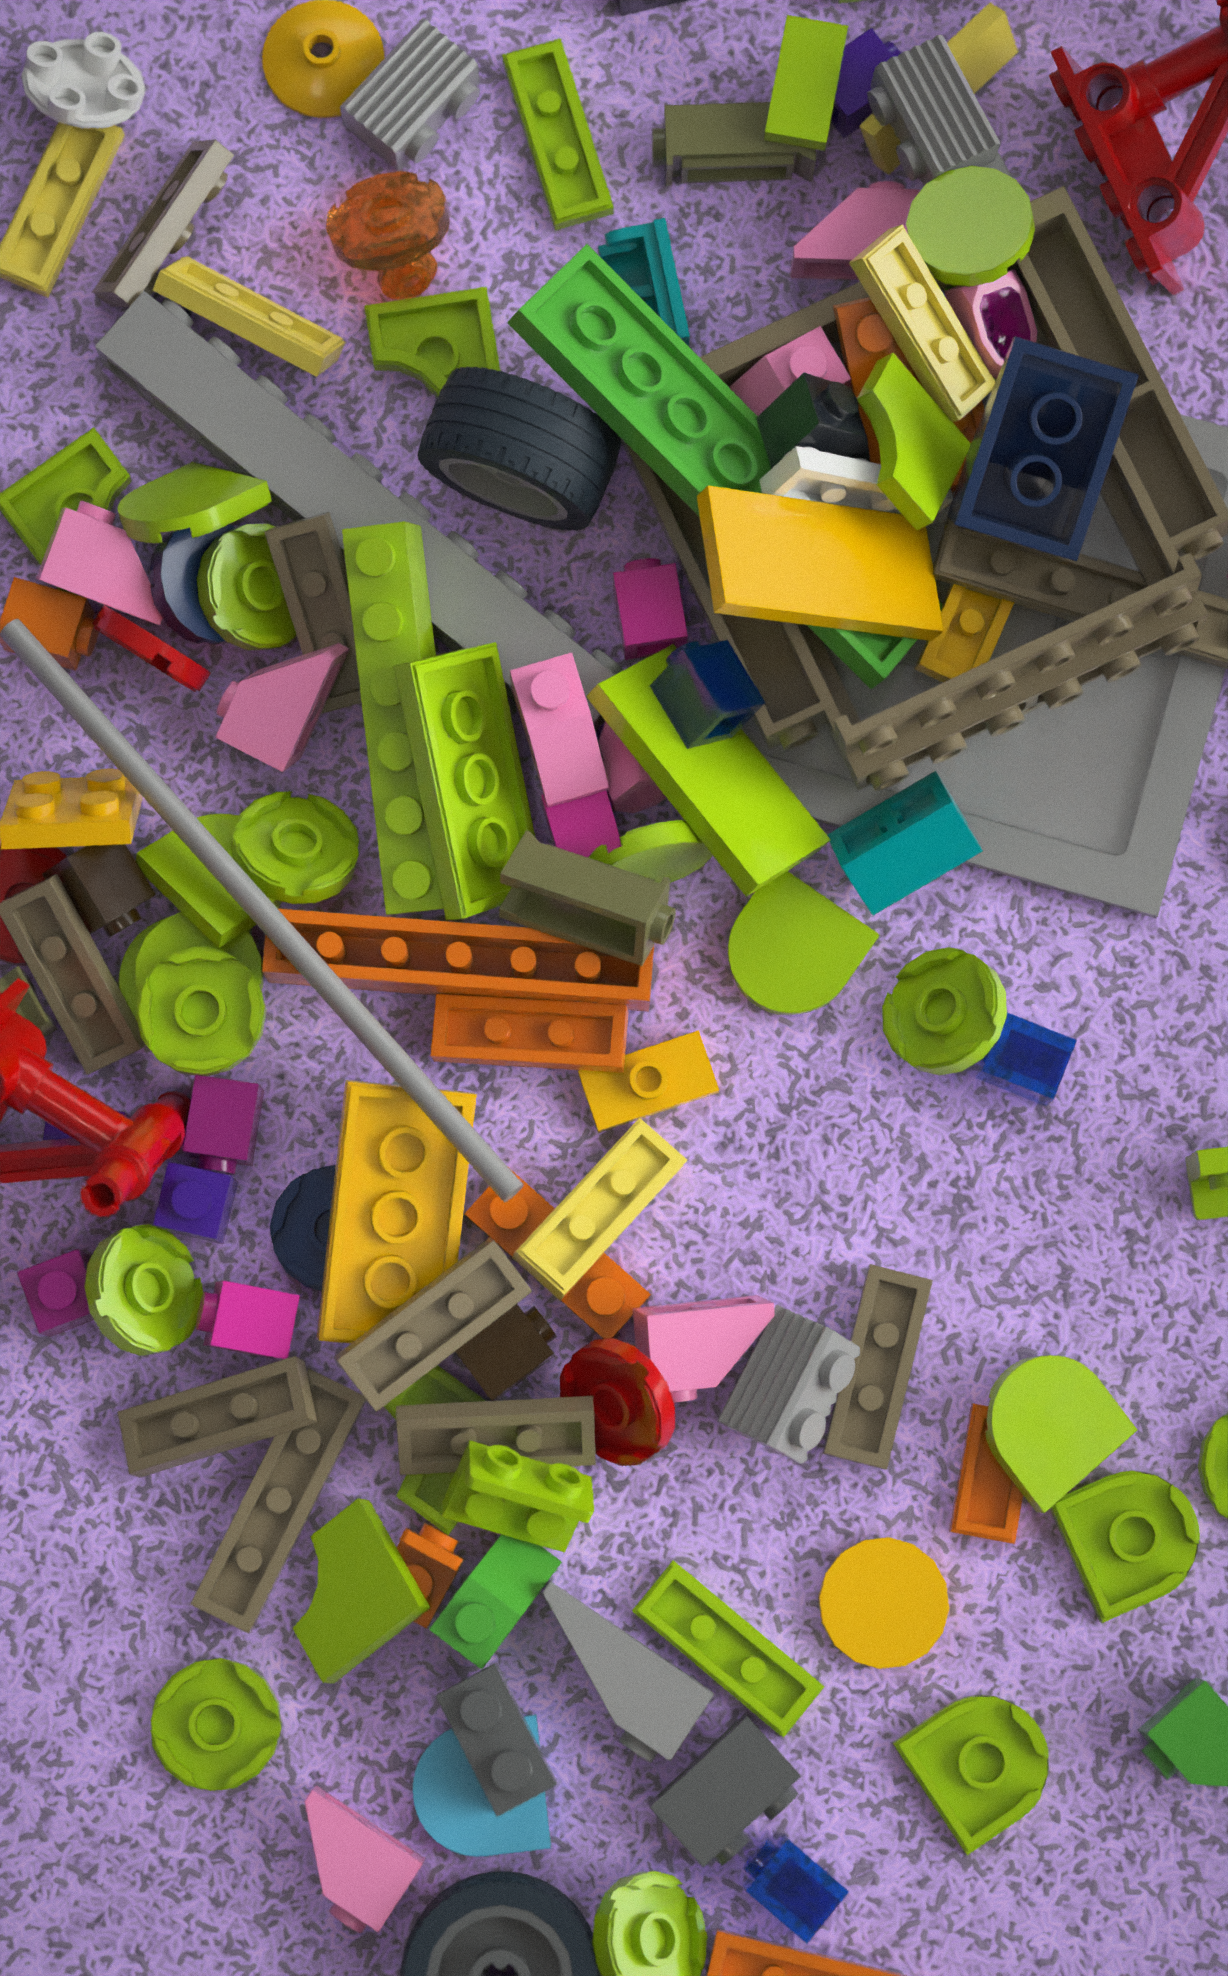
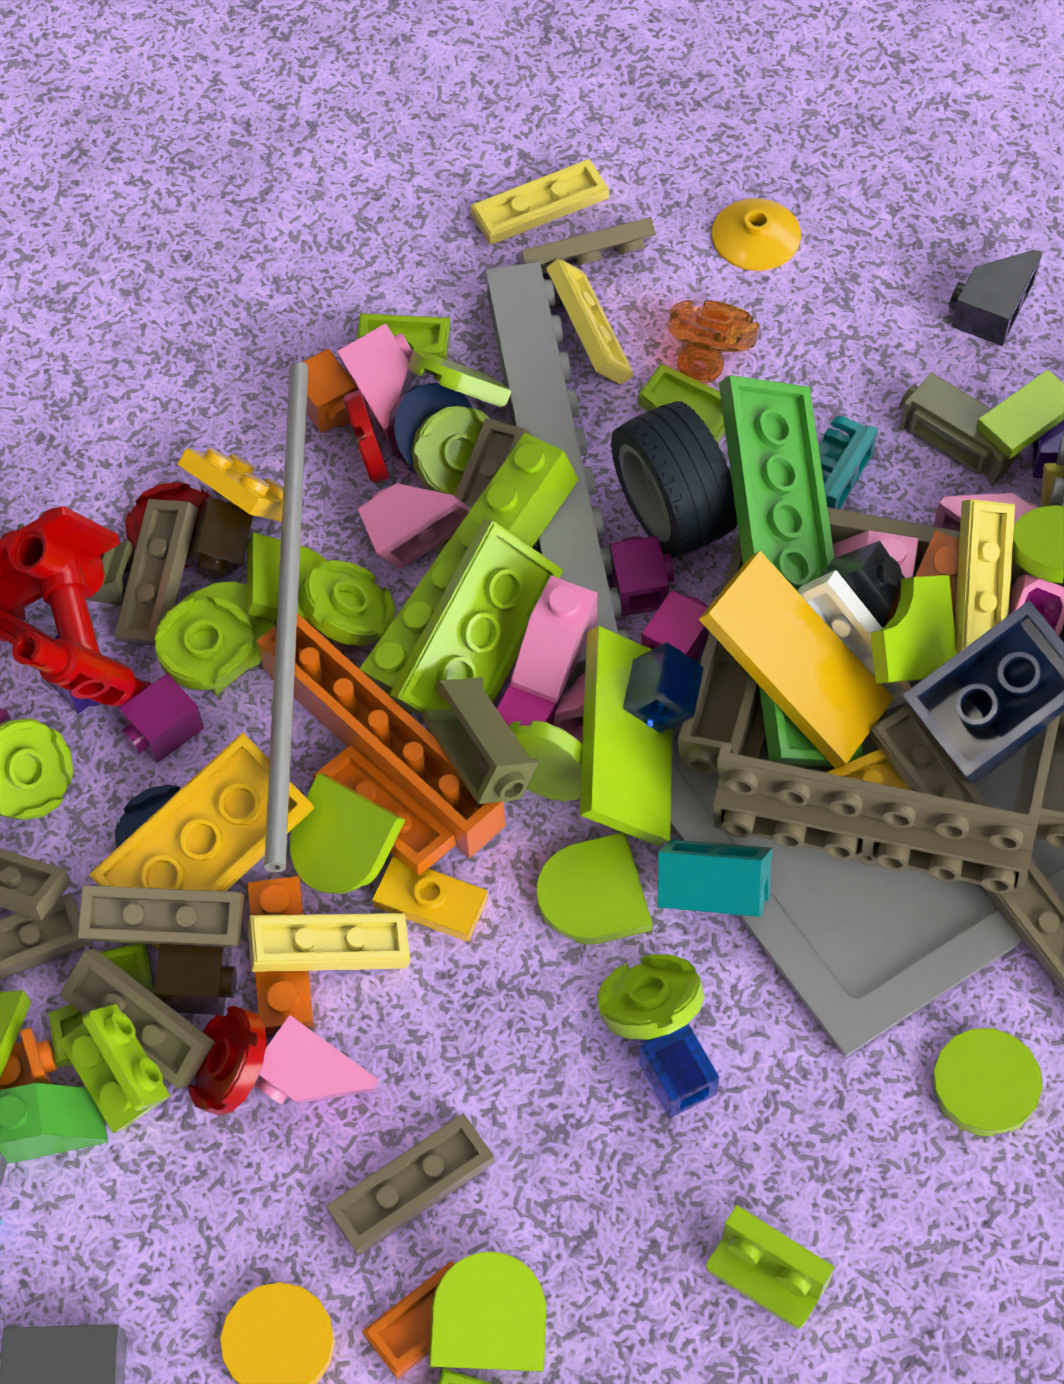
camera: 45 degrees right, 20 degrees down
(83, 81) = (608, 150): white dish -> none
(195, 1202) = (100, 748): dark purple brick -> none
(248, 1319) = (64, 834): dark pink brick -> none
(412, 96) = (787, 277): light grey brick -> none
(526, 1095) = (342, 838): none -> lime tile
(557, 134) = (857, 358): lime tile -> none
(557, 571) = (640, 574): none -> magenta brick
(639, 1687) = (74, 1245): light grey slope -> none
(728, 1648) = (154, 1284): lime tile -> none
(790, 1384) = (342, 1141): light grey brick -> none

